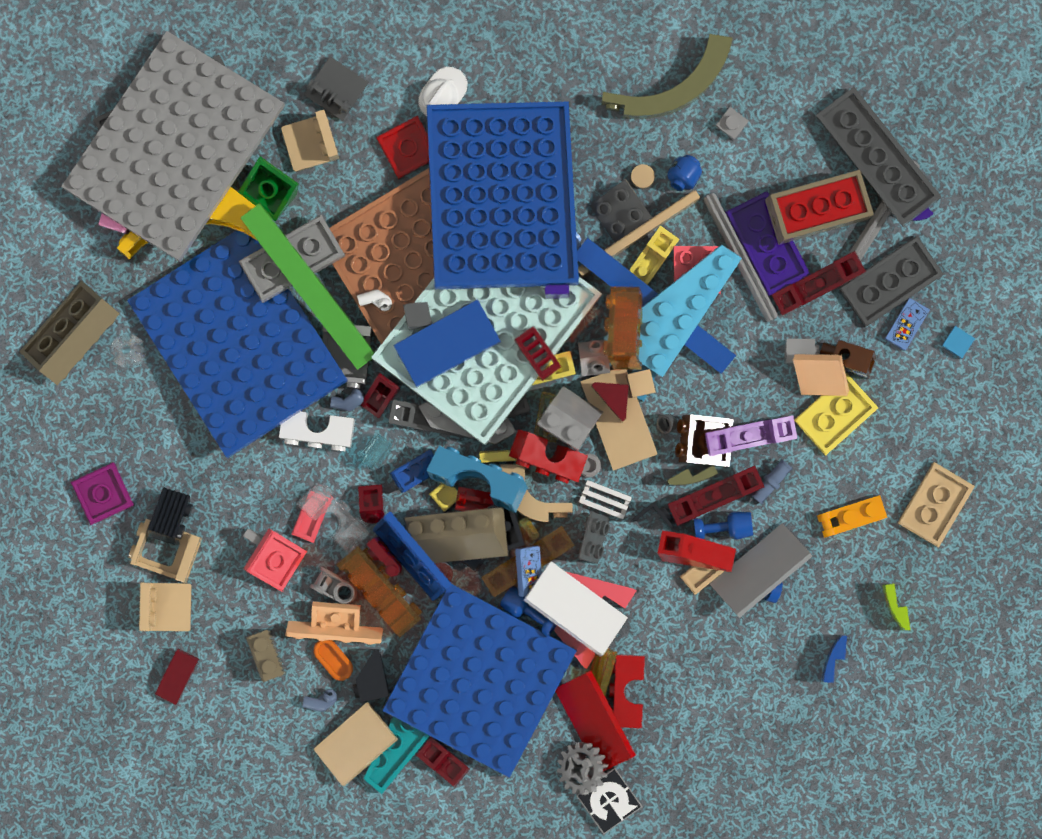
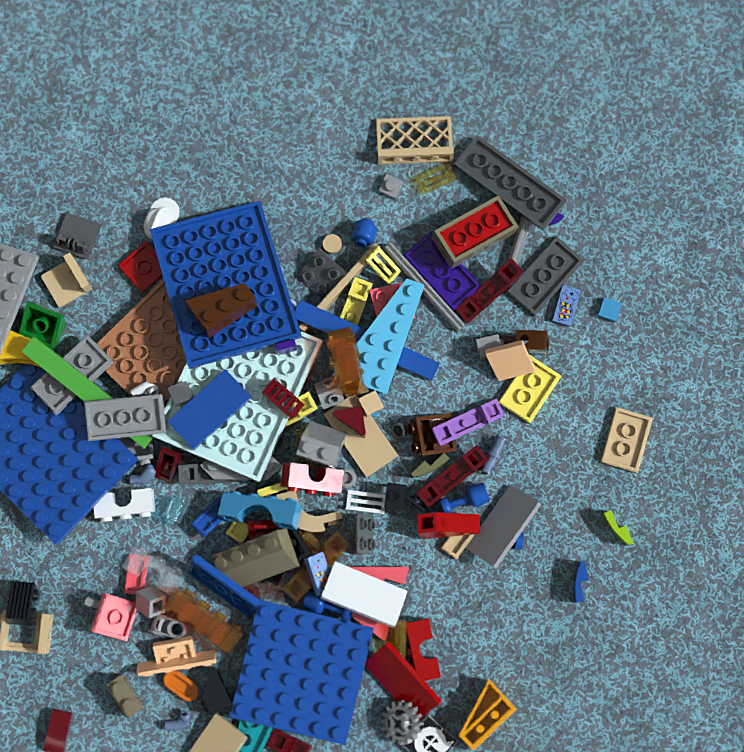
camera: 15 degrees left, 5 degrees down
(165, 607) = (35, 677): tan bracket -> none
(321, 553) = (150, 601): none -> light grey brick
(344, 327) = (125, 417): none -> light grey tile
(371, 503) = (181, 551): dark red bracket -> none
(379, 551) = (198, 589): dark red plate -> none
(490, 226) = (221, 308): none -> reddish brown wedge
(641, 503) = (395, 496): none -> black bracket
(682, 94) = (345, 174): olive arch -> none
(683, 787) = (487, 716): none -> light orange wedge
(688, 204) = (372, 255): none -> light yellow tile
(766, 89) = (414, 155): none -> tan fence
(769, 130) = (426, 190): none -> clear yellow tile
(853, 516) = (564, 465): light orange plate -> none

